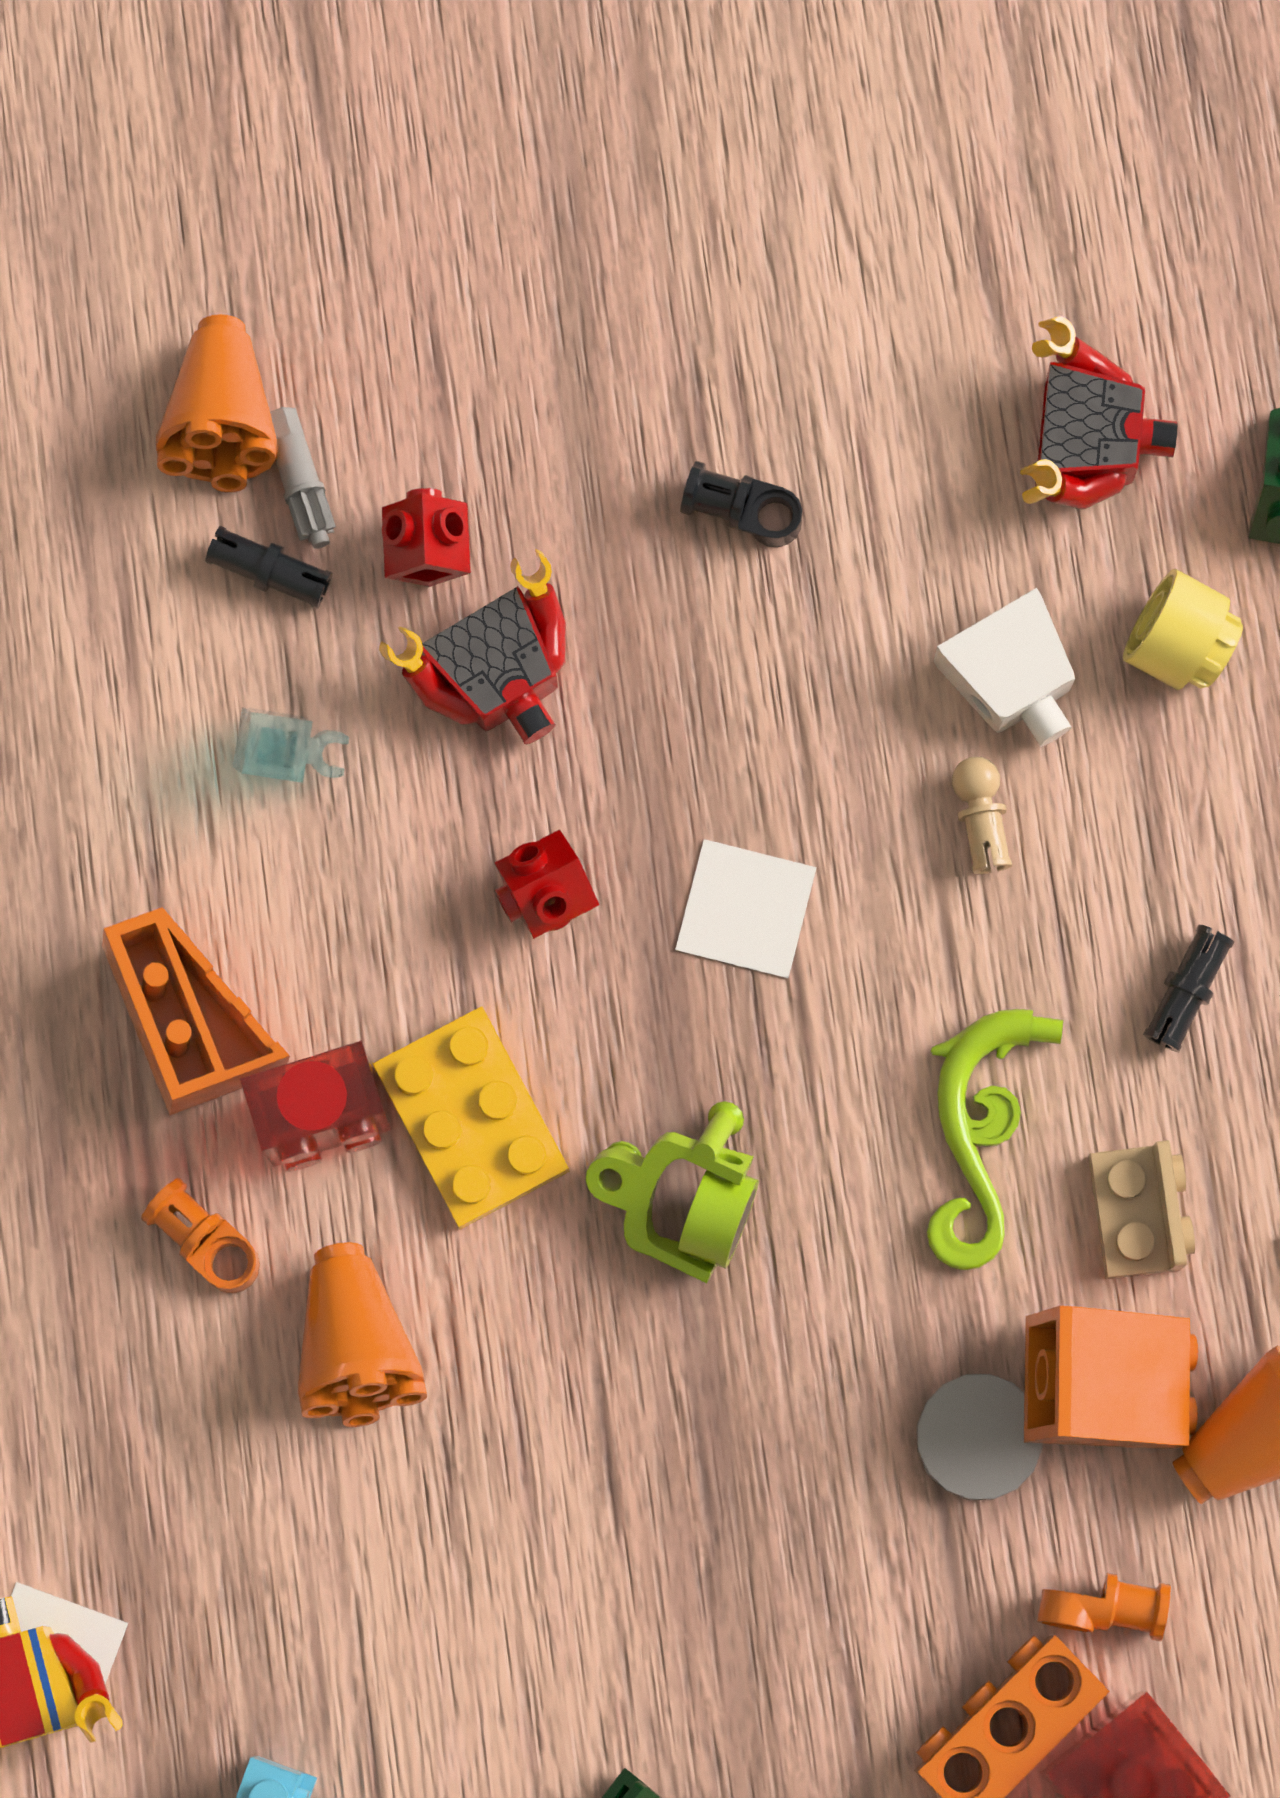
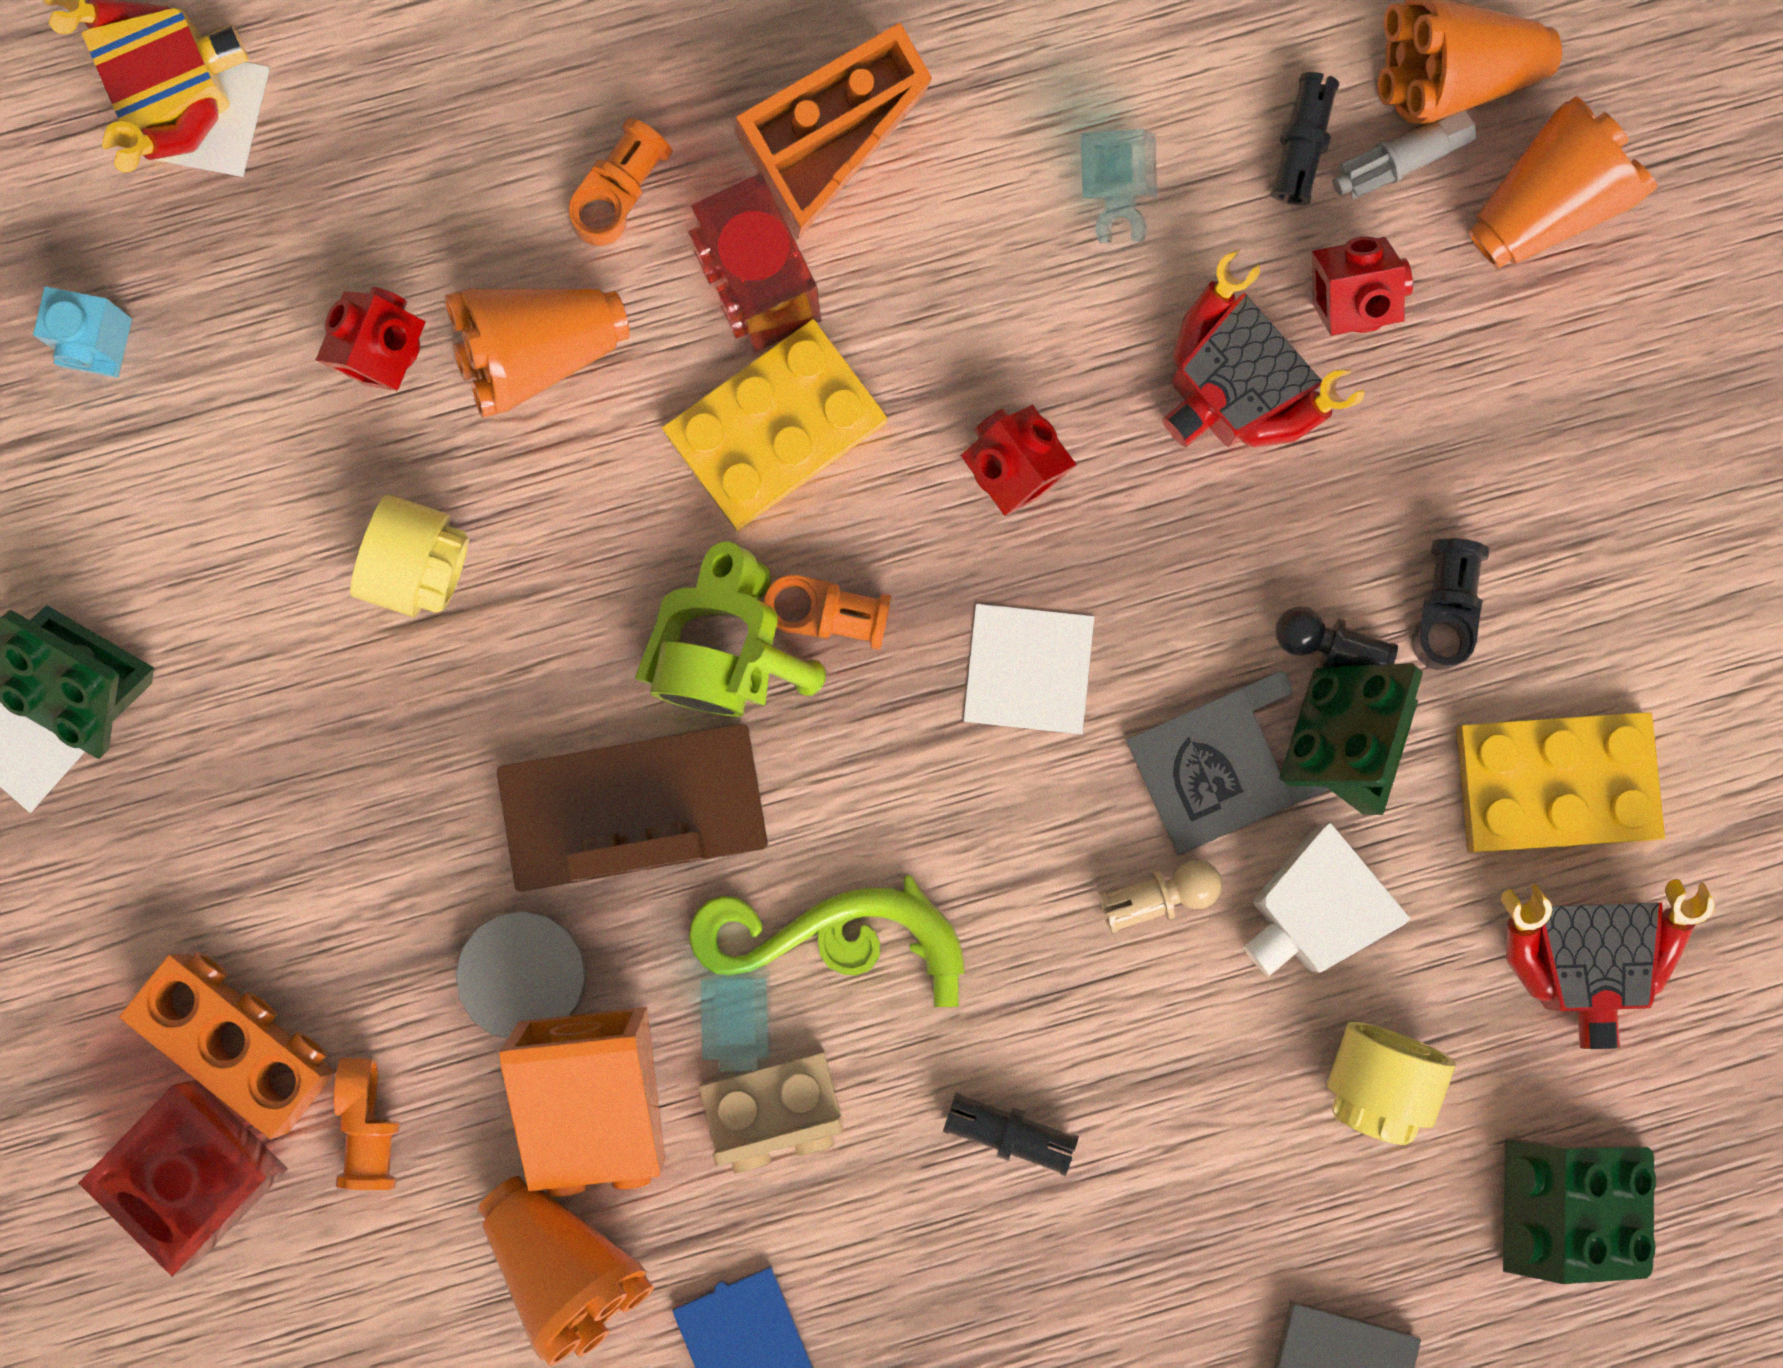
camera: 80 degrees right, 5 degrees up
(327, 1500) = (371, 338): none -> red brick
(361, 339) = (1561, 186): none -> orange cone
(556, 1488) = (409, 558): none -> light yellow piece
(661, 1089) = (826, 611): none -> orange connector
(749, 644) = (1302, 632): none -> black pin
(831, 1307) = (632, 807): none -> reddish brown bracket
(853, 613) = (1353, 732): none -> dark green bracket
(868, 746) = (1215, 767): none -> dark grey flag
(924, 434) = (1560, 782): none -> yellow plate
(1050, 1230) = (736, 1021): none -> clear light blue brick

